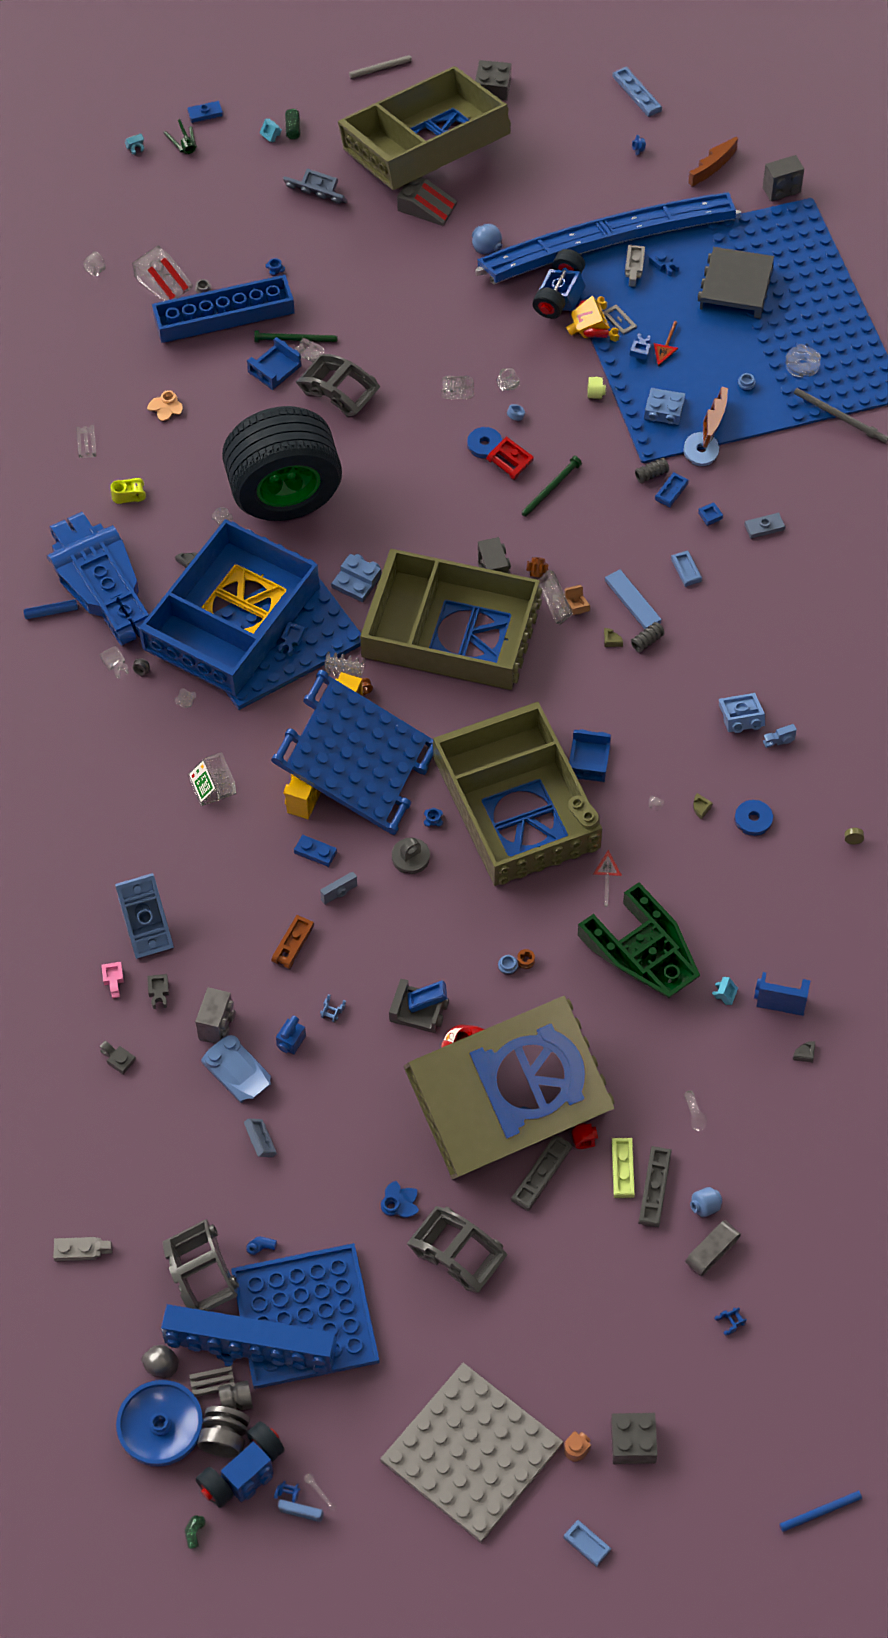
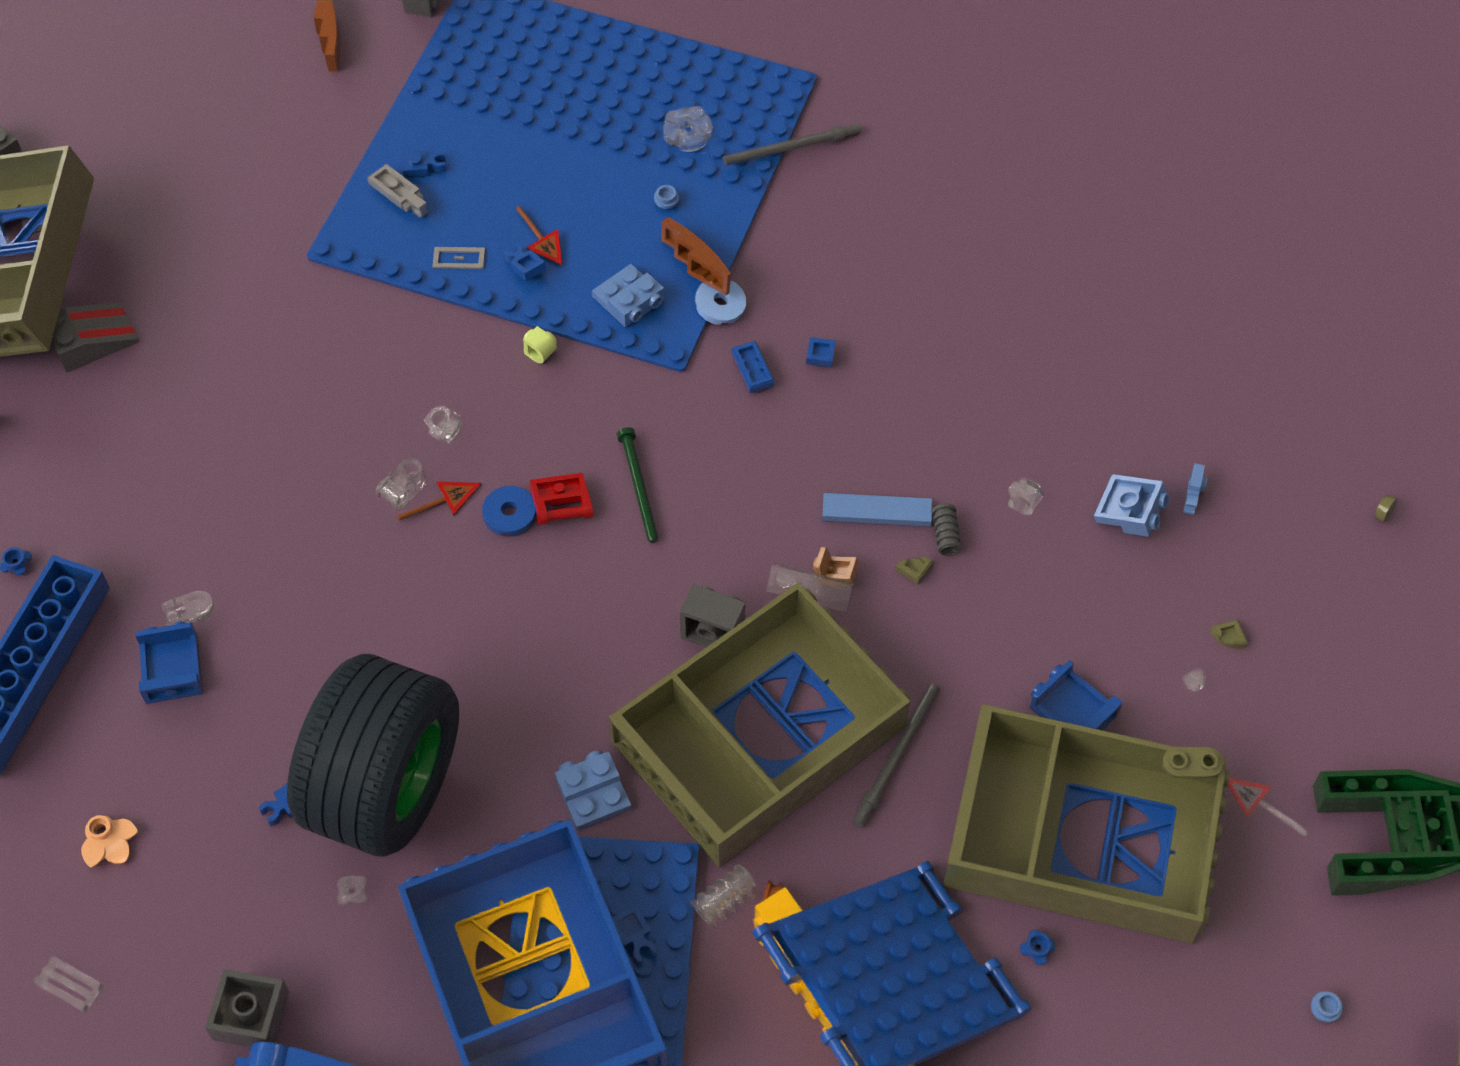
camera: 55 degrees left, 0 degrees up
(126, 491) = (203, 979): neon yellow piece -> none
(127, 513) = (247, 1008): none -> dark grey brick
(185, 559) = (382, 980): dark grey tile -> none
(294, 337) = (105, 653): dark green bar -> none
(312, 382) = (246, 644): dark grey window -> none
(410, 855) = (1077, 1014): dark grey tile -> none
(454, 698) = (872, 798): none -> dark grey bar
(473, 414) = (453, 493): none -> piece
(487, 239) = (212, 308): medium blue plant -> none
(516, 412) = (496, 448): medium blue tile -> none
(530, 962) = (1334, 970): dark orange bush -> none
(537, 566) = (751, 576): dark orange gear -> none
(561, 285) = (365, 277): brick -> none
(591, 321) = (440, 283): yellow torso -> none
(607, 232) = (322, 192): blue piece -> none
(637, 91) = (151, 31): medium blue tile -> none
(638, 144) = (231, 77): blue plate -> none
(654, 469) = (708, 367): dark grey piece -> none
(686, 568) = (875, 426): medium blue tile -> none
(702, 660) = (1024, 496): none -> clear plate
(736, 279) = (521, 112): dark grey panel -> none
(757, 808) = (1289, 578): blue tile -> none
(764, 525) = (878, 312): sand blue plate -> none

